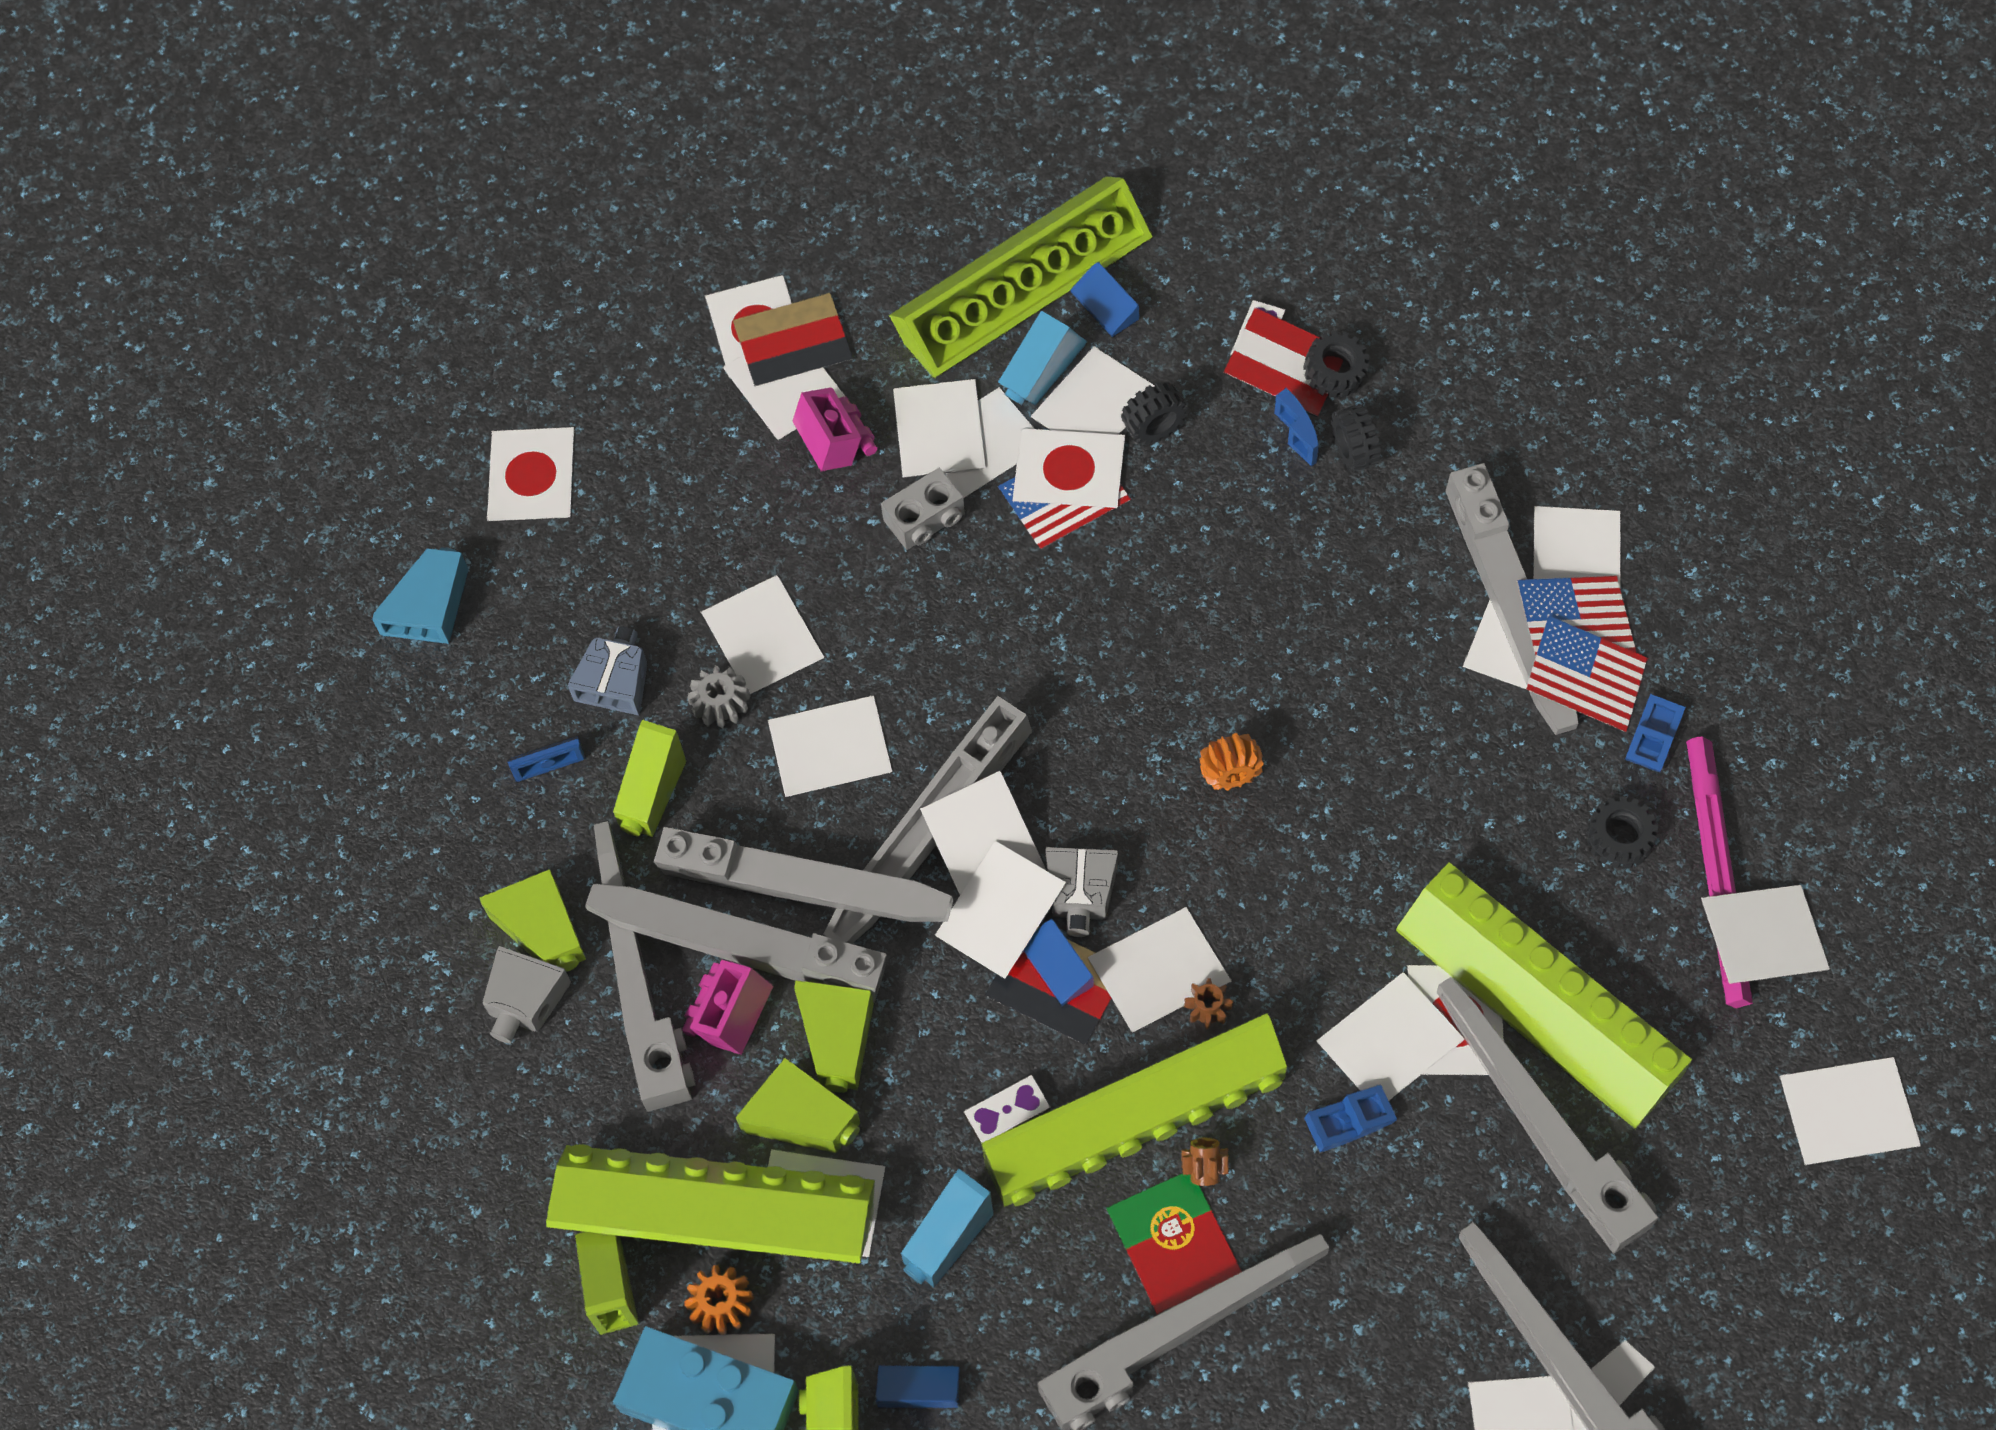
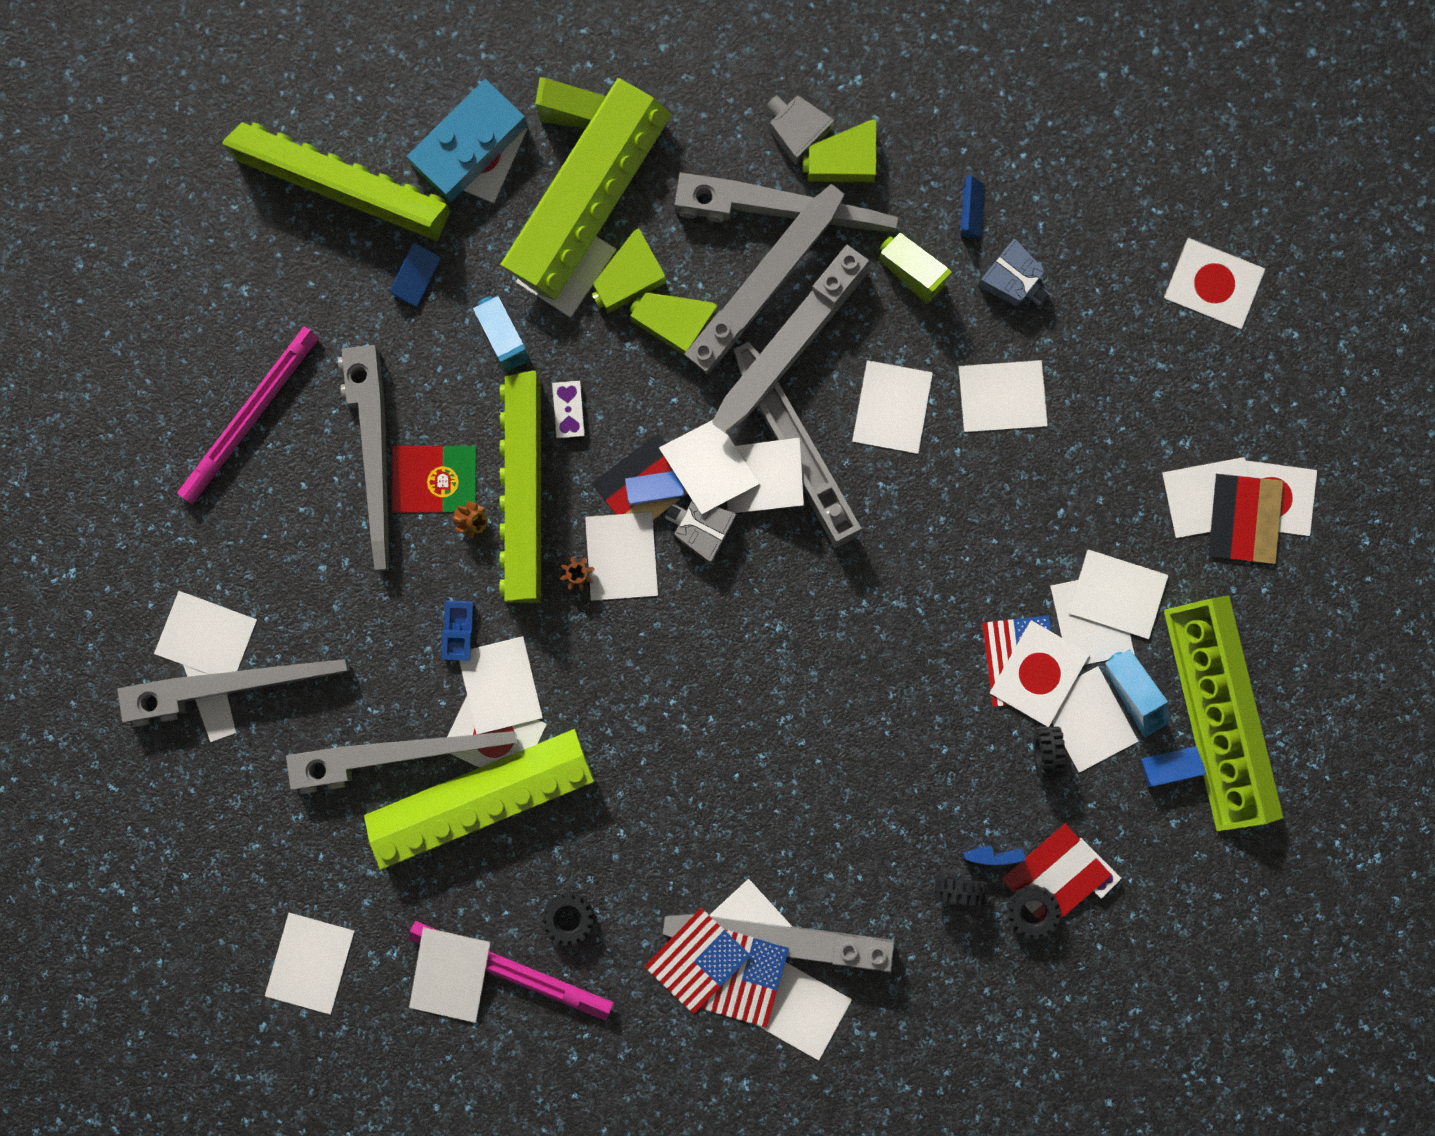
camera: 110 degrees right, 20 degrees up
(425, 599) = (1137, 170): dark azure slope -> none
(718, 696) = (973, 344): light grey gear -> none
(723, 1312) = (527, 163): orange gear -> none
(727, 1006) = (723, 255): dark pink brick -> none
(831, 428) = (1146, 507): dark pink brick -> none
(918, 503) = (1056, 549): light grey brick -> none
(1231, 761) = (742, 672): orange gear -> none
(1655, 733) = (631, 984): blue slope -> none

